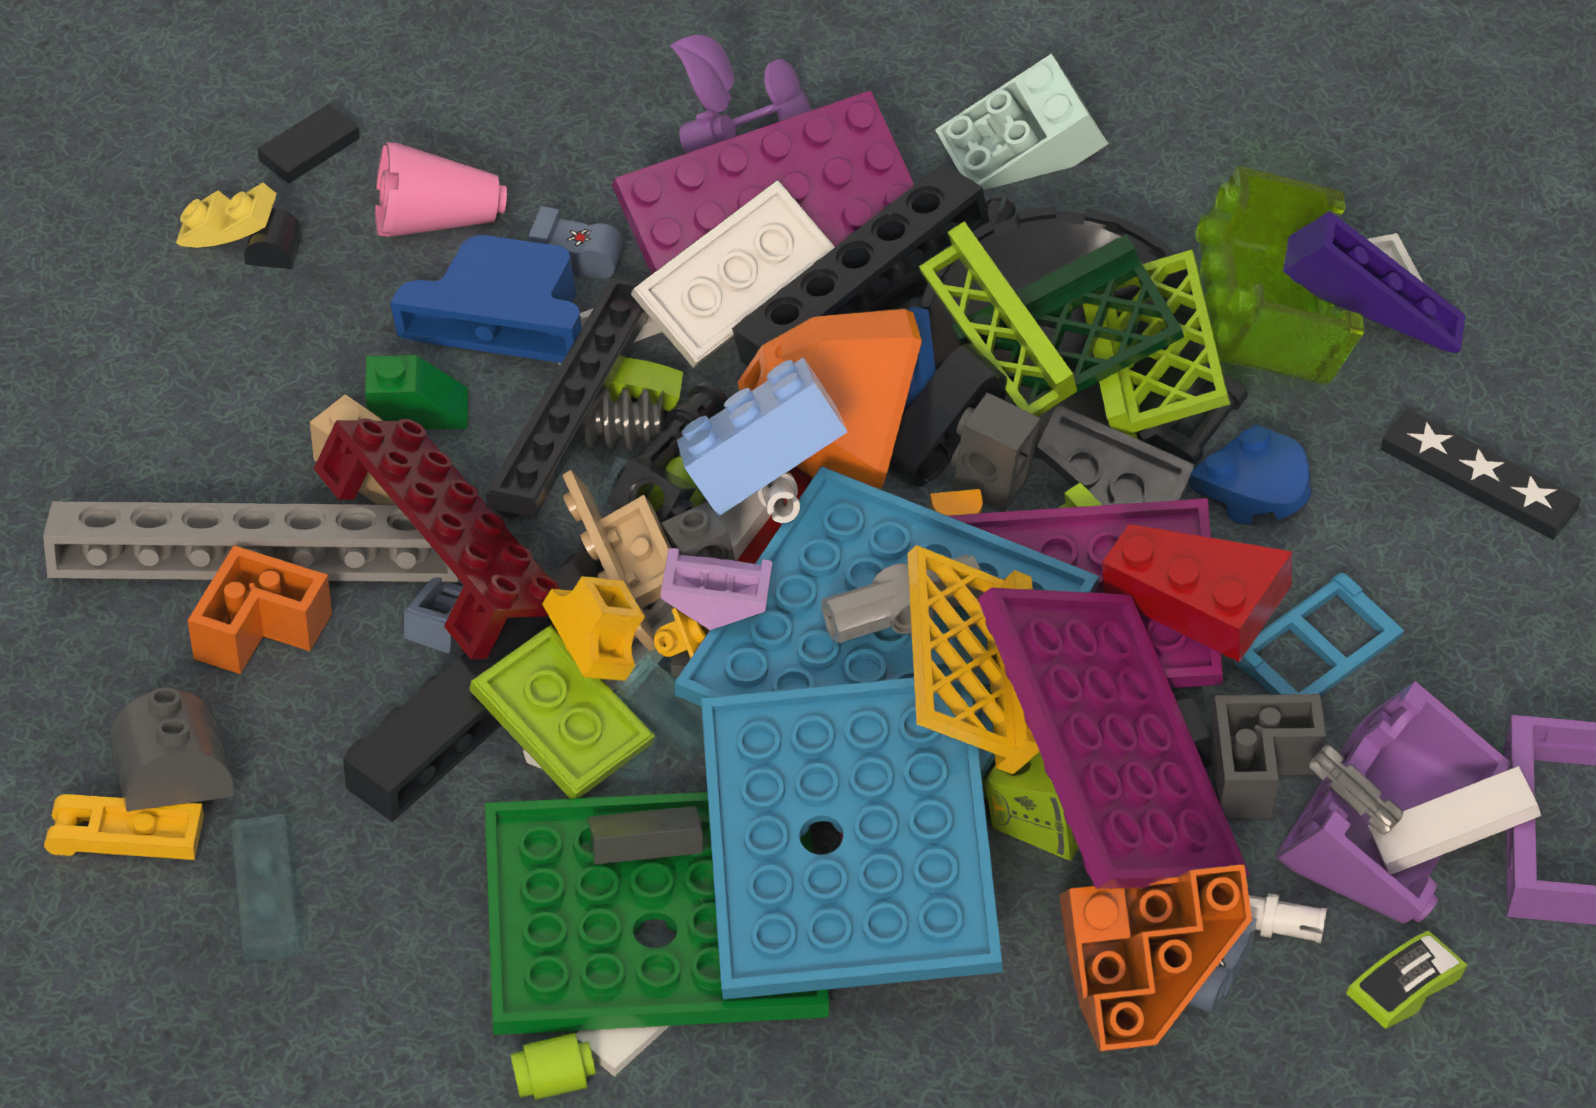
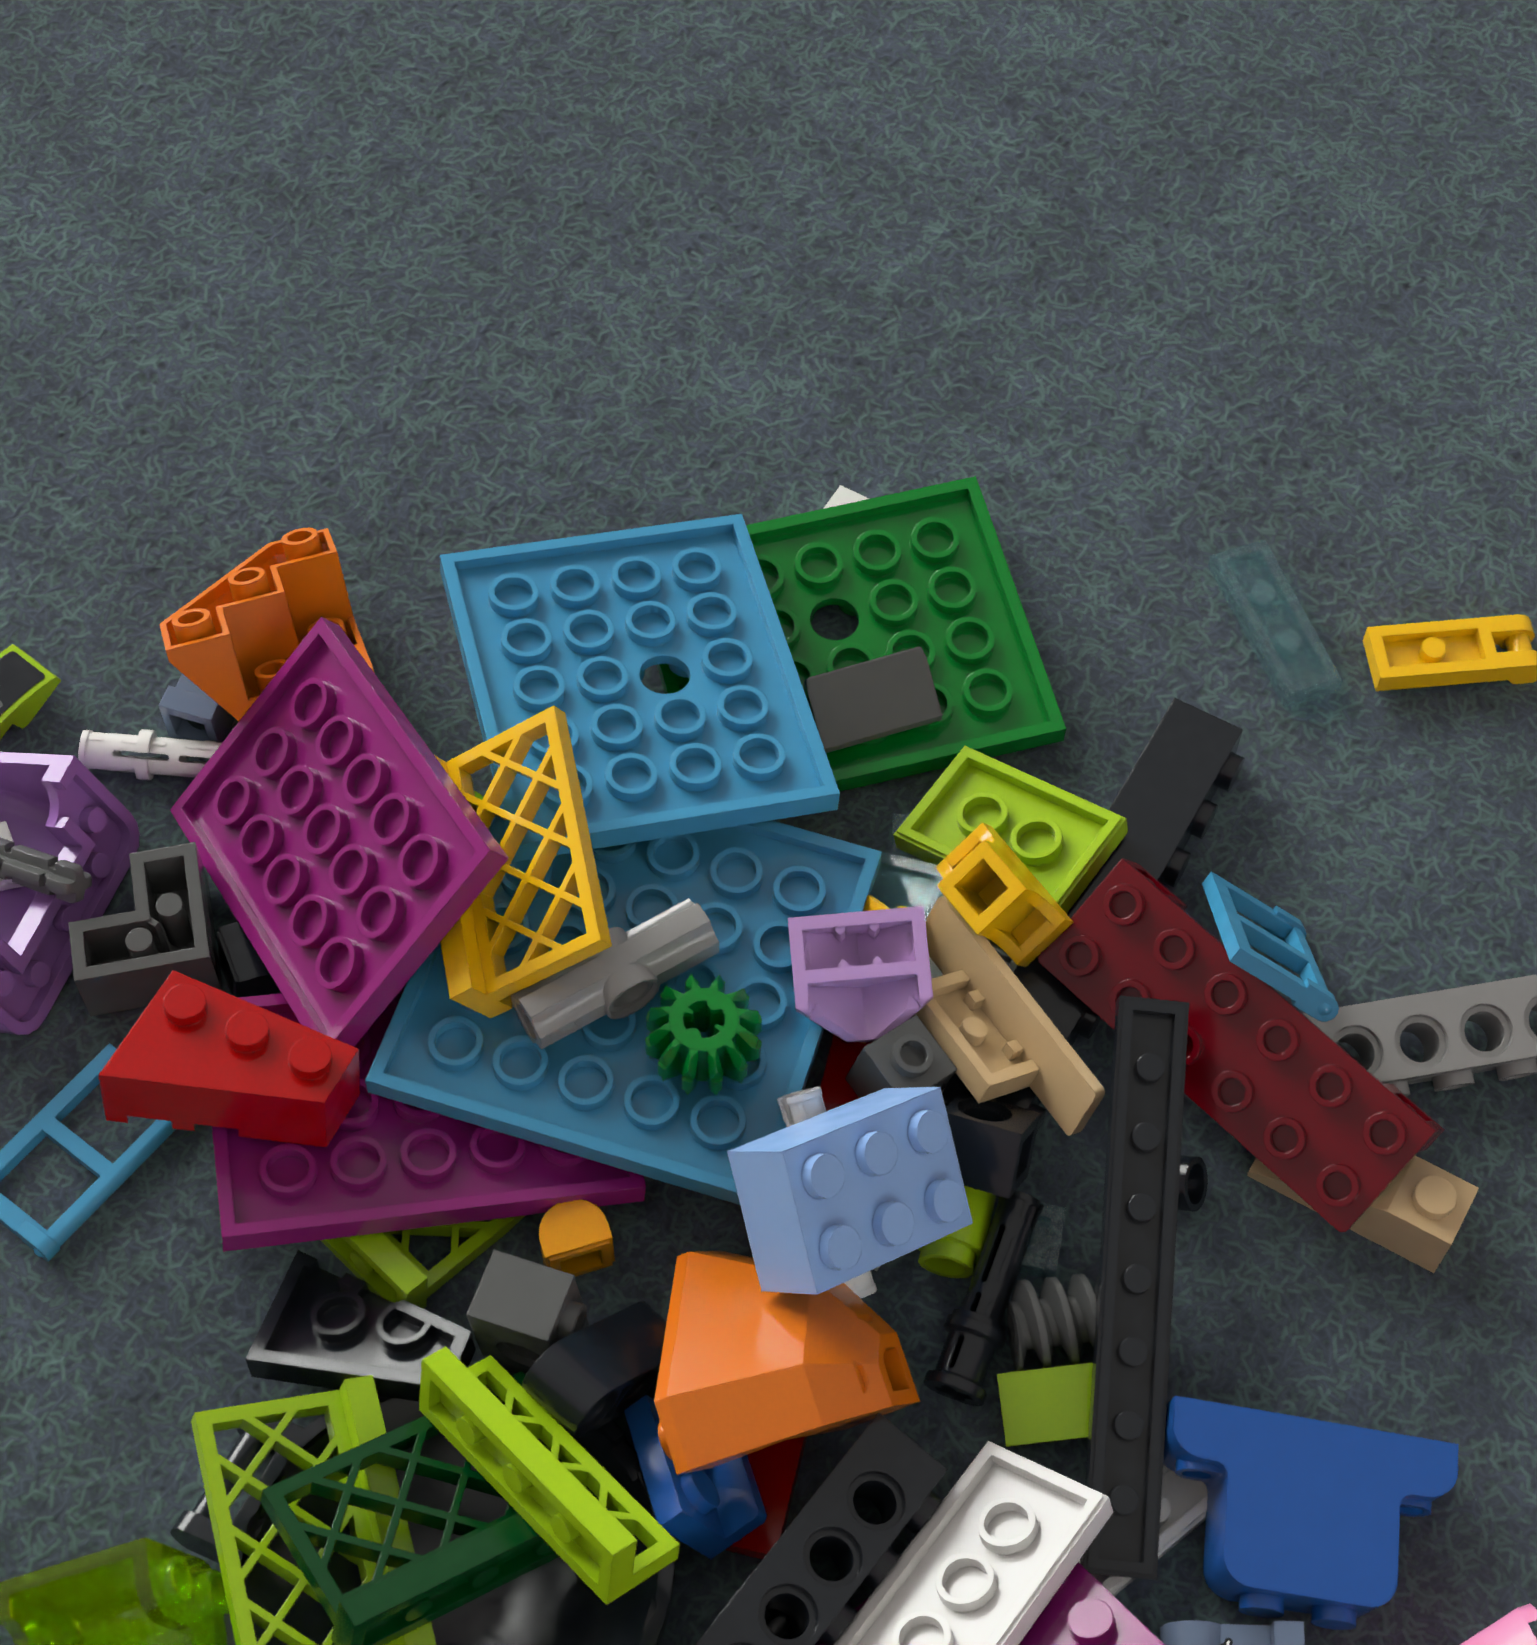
camera: 170 degrees right, 10 degrees up
(169, 751) = (1435, 720): dark grey brick -> none
(254, 600) = (1428, 934): orange brick -> none
(415, 391) = (1365, 1315): green slope -> none
(421, 587) = (1279, 938): none -> dark azure window
(552, 1067) = (903, 465): lime brick -> none
(845, 547) = (678, 1041): none -> green gear
(1256, 475) = (143, 1401): blue slope -> none

